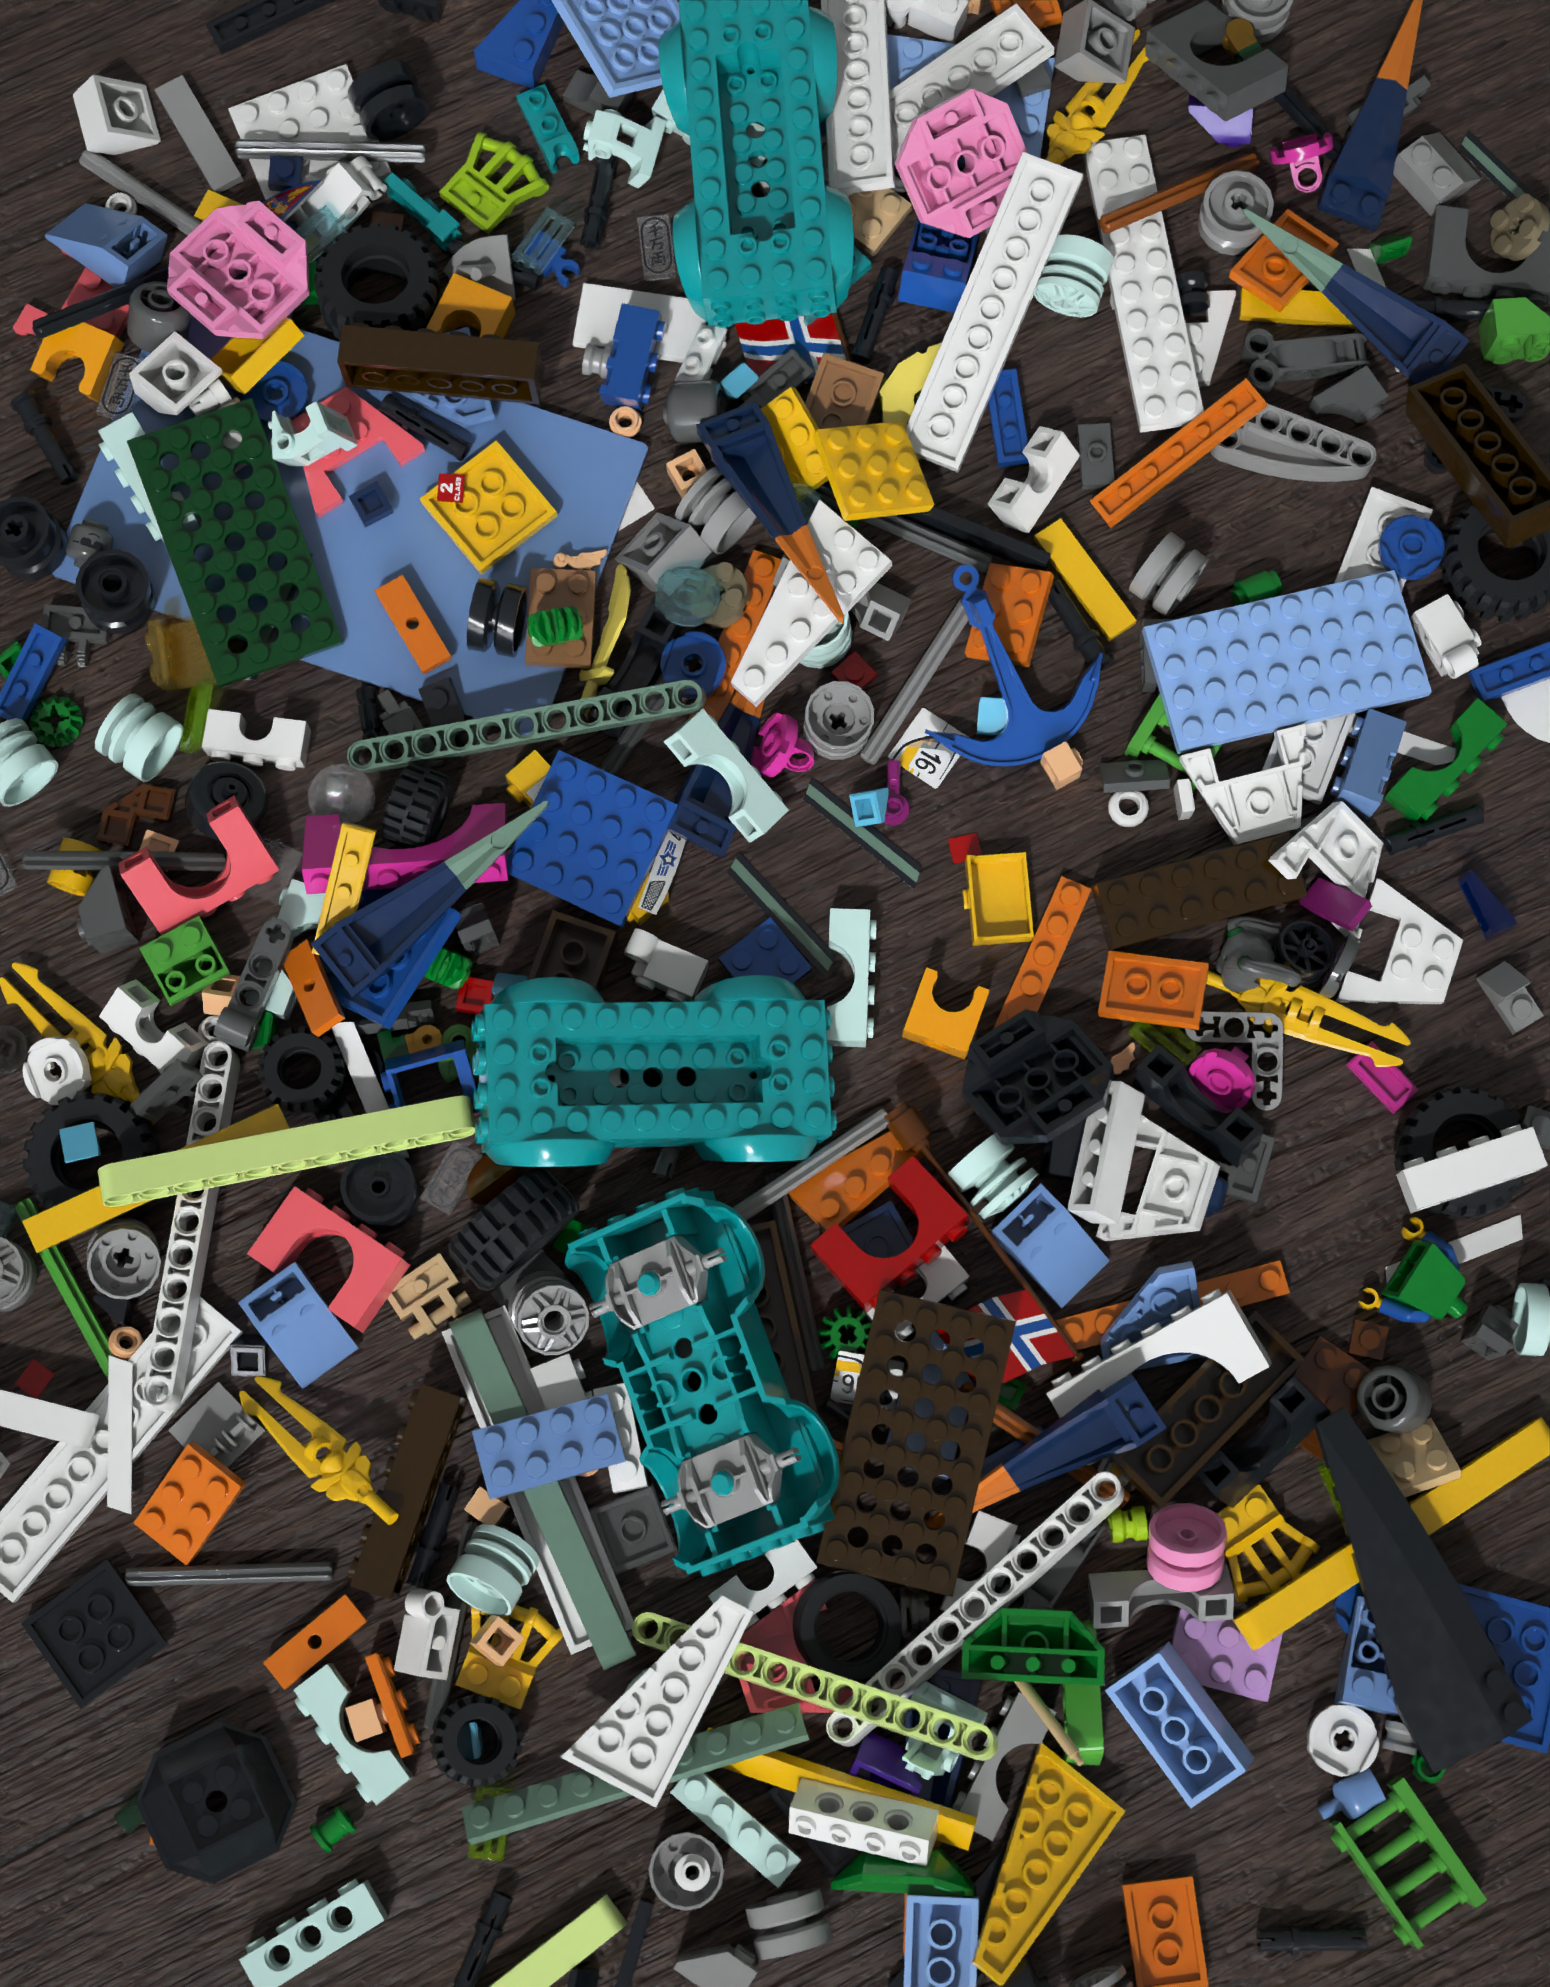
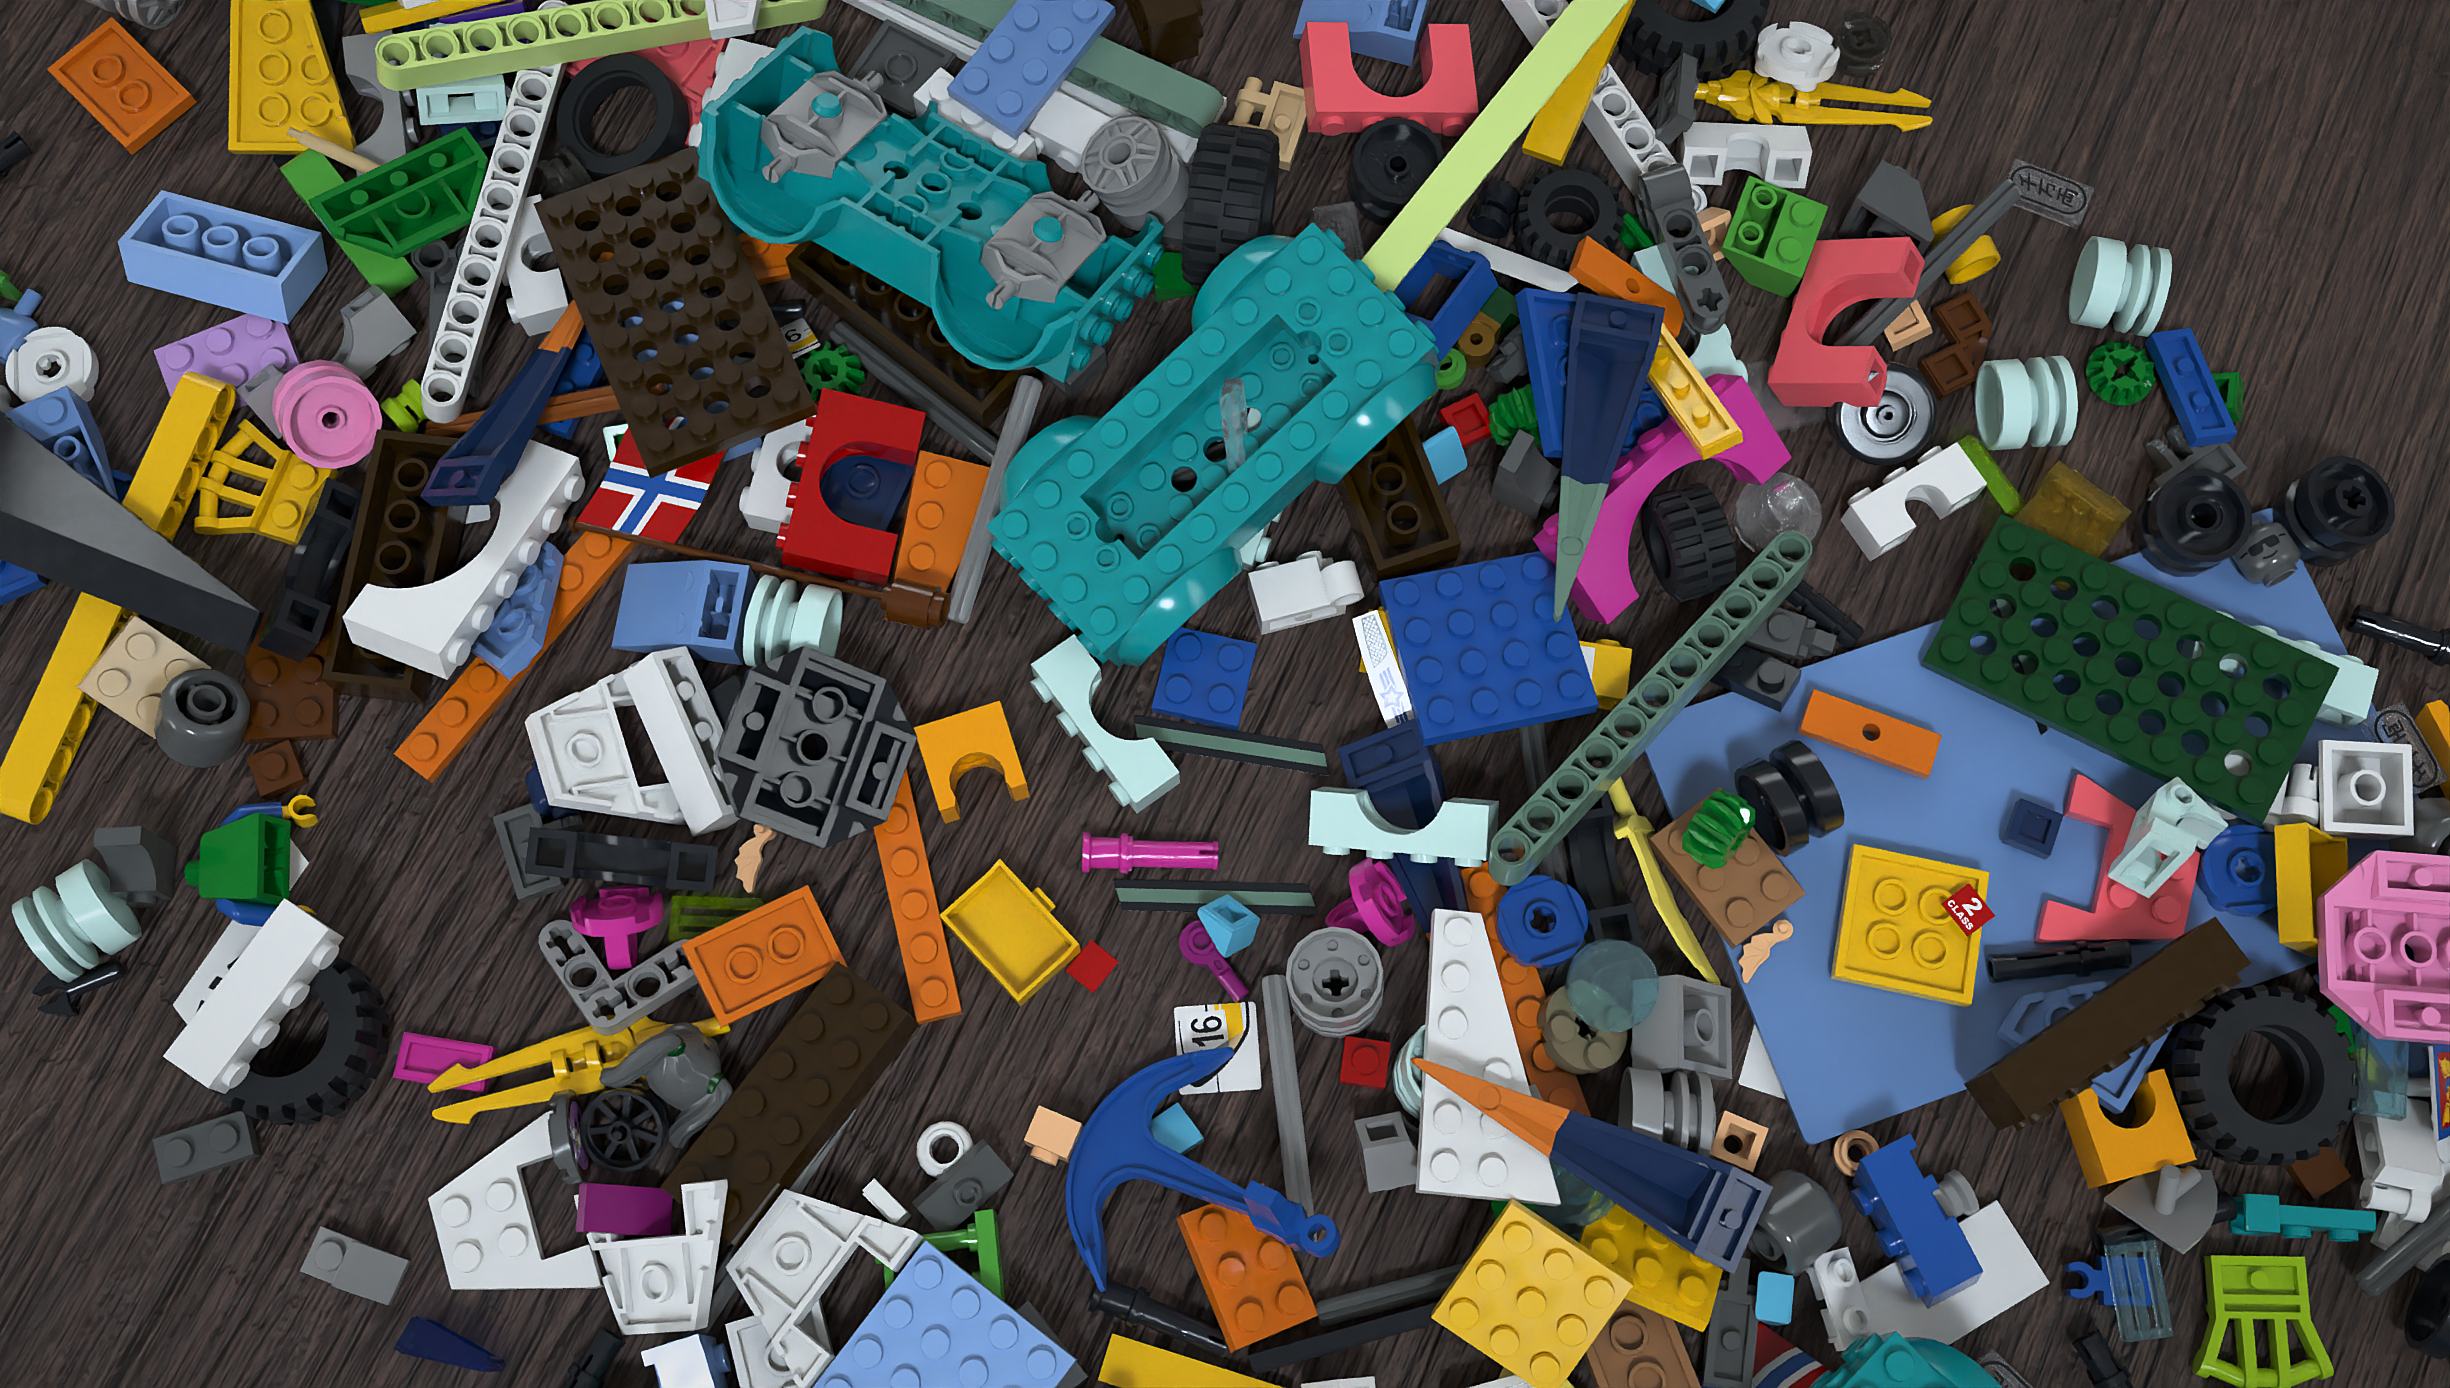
camera: 140 degrees right, 5 degrees down
(634, 1071) = (1234, 421): none -> clear tile
(895, 892) = (1126, 853): none -> dark pink pin

